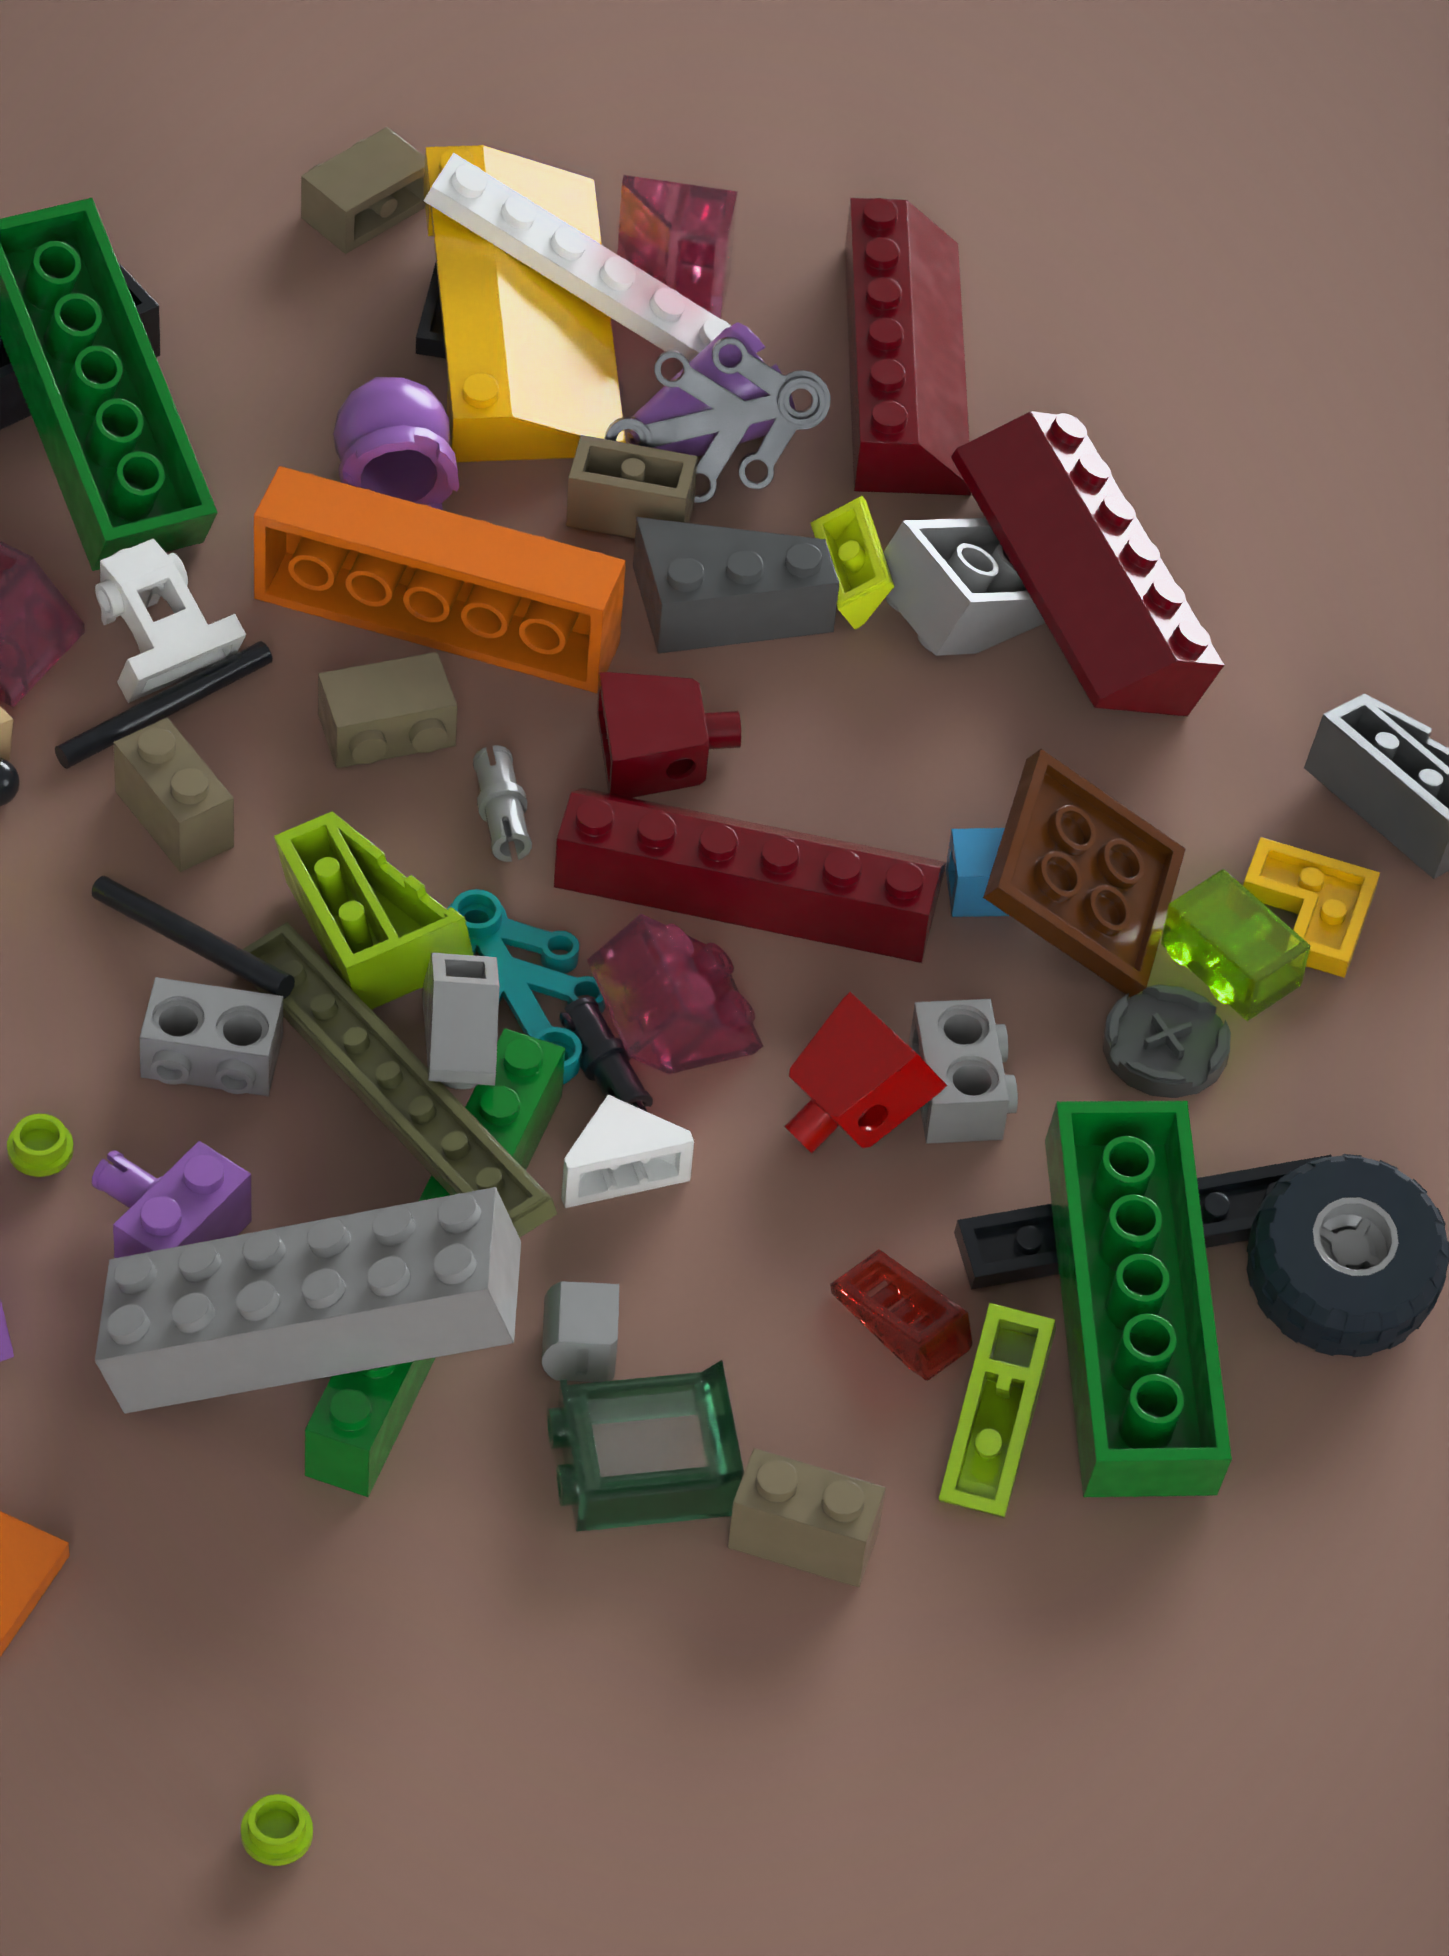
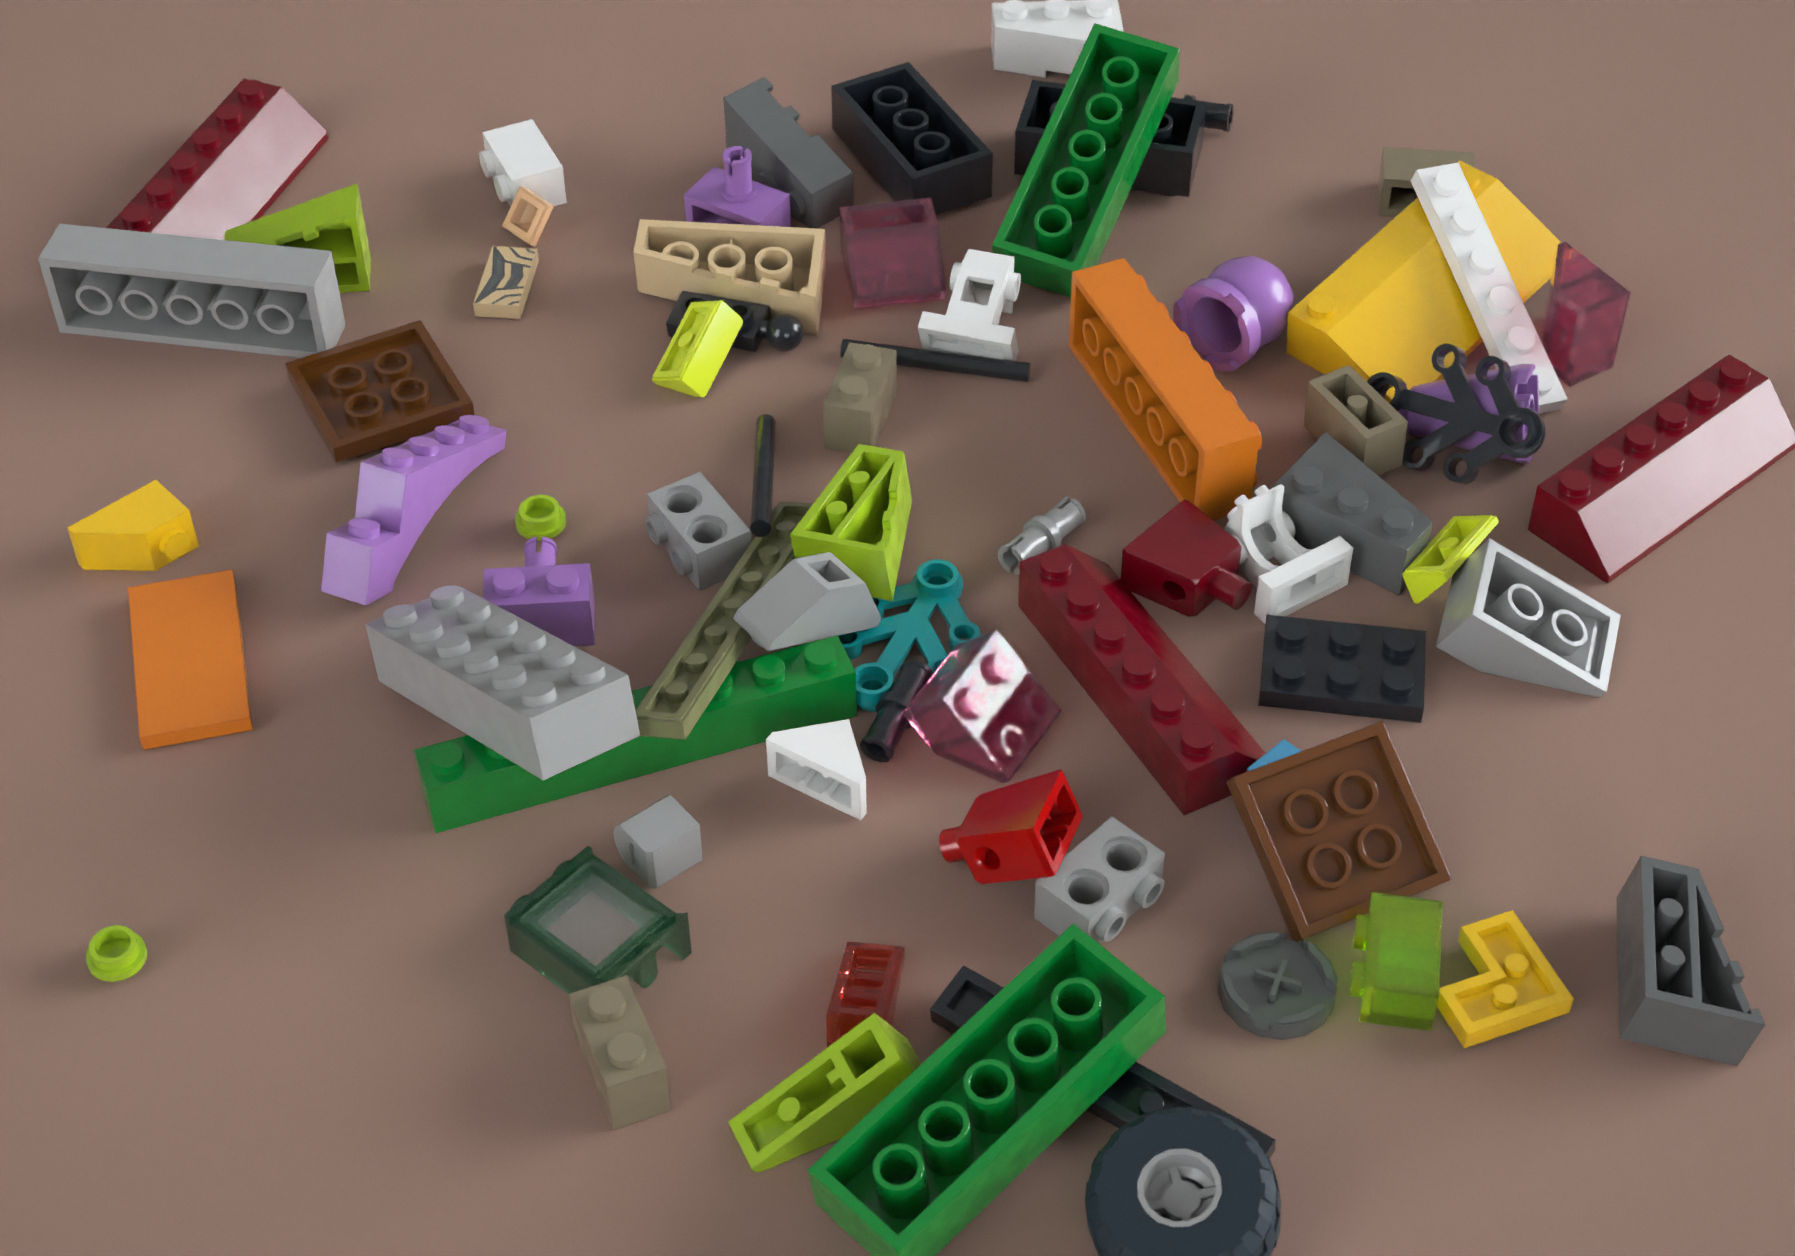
camera: 55 degrees right, 5 degrees down
(387, 709) = (1044, 441): dark tan brick -> none
(751, 665) = (1304, 573): none -> white tile
(881, 733) = (1343, 668): none -> black plate
(1089, 565) = (1607, 664): dark red slope -> none

